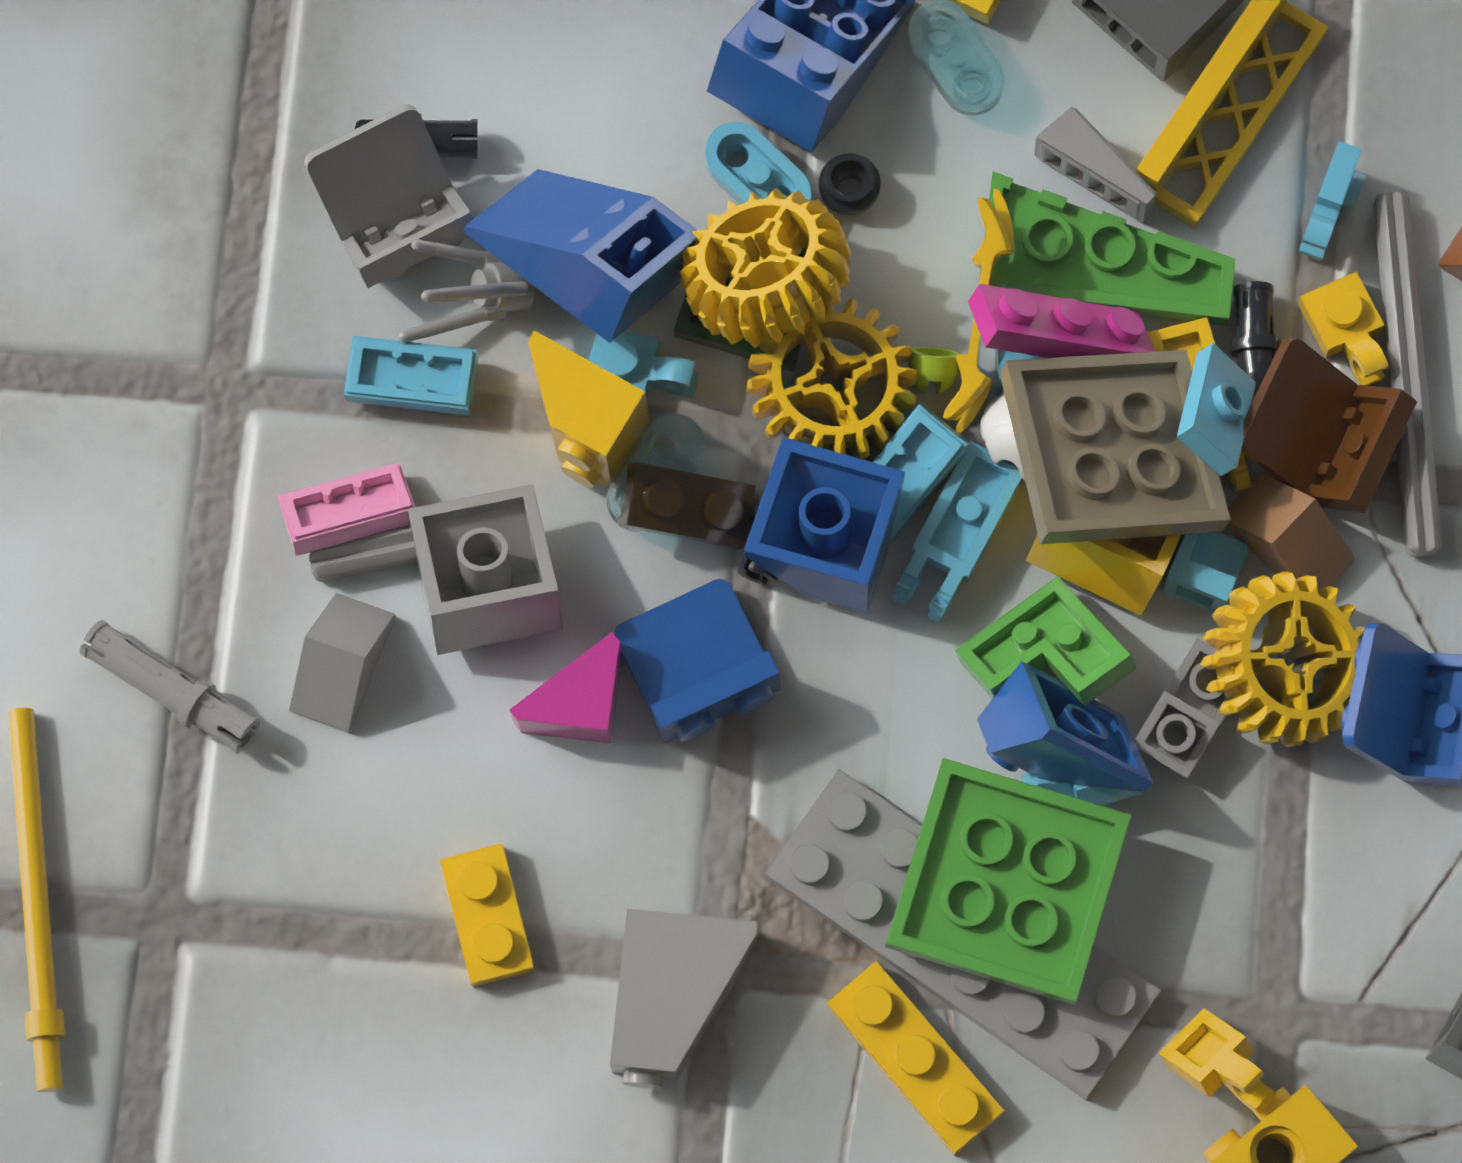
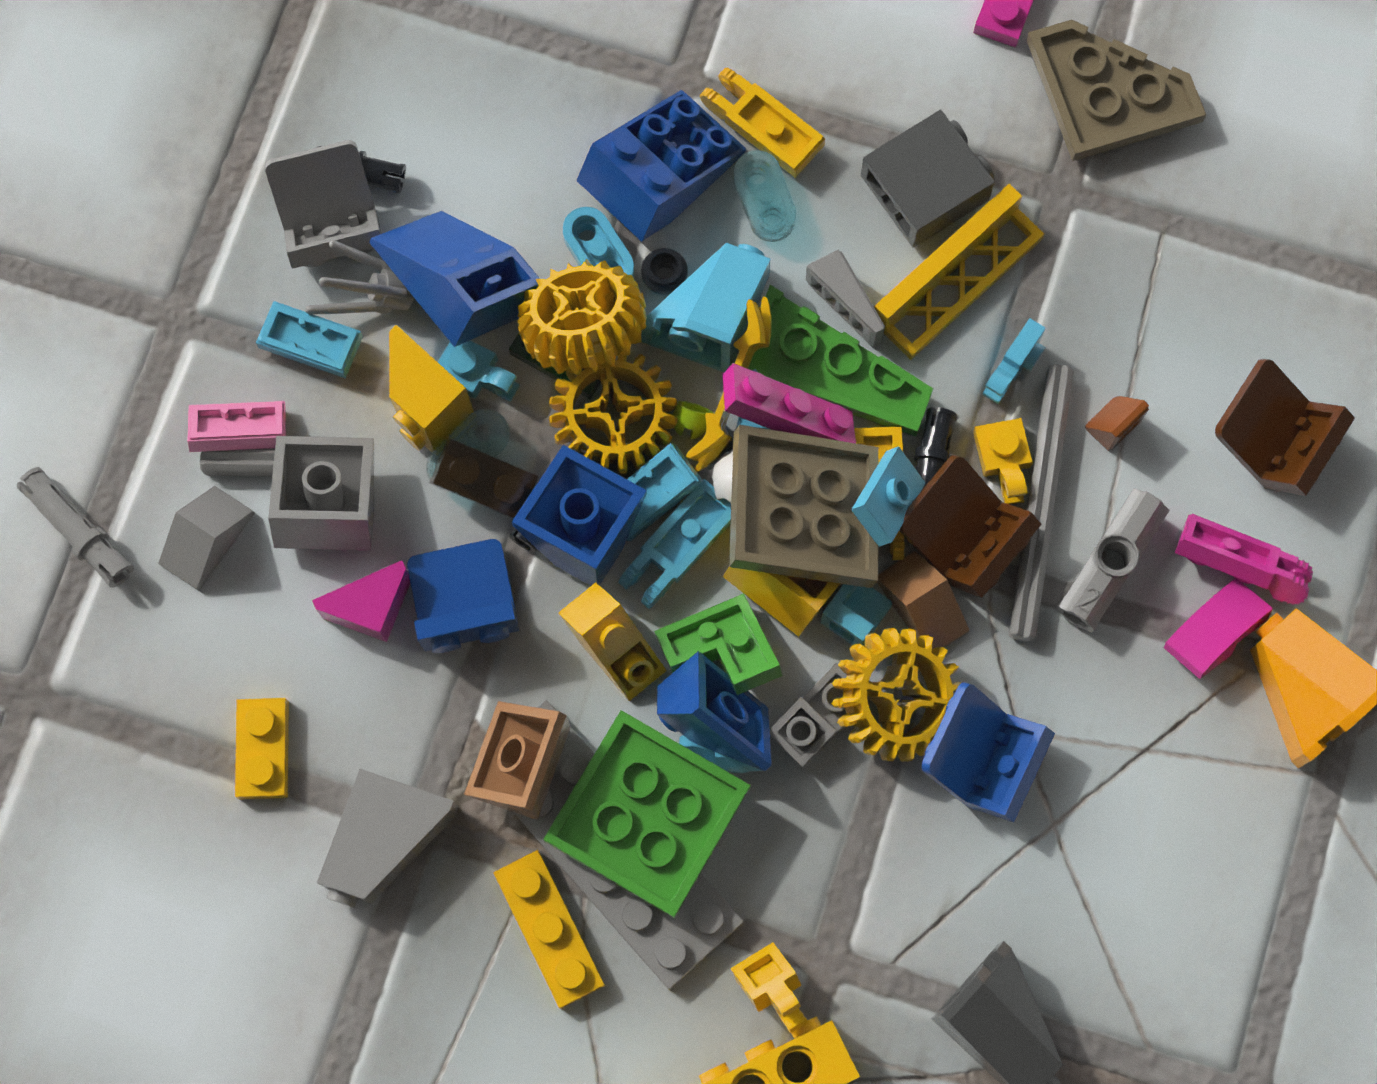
camera: 10 degrees right, 0 degrees up
(825, 848) = (518, 758): none -> medium nougat slope
(905, 674) = (612, 640): none -> yellow slope
(925, 219) = (710, 307): none -> medium azure slope

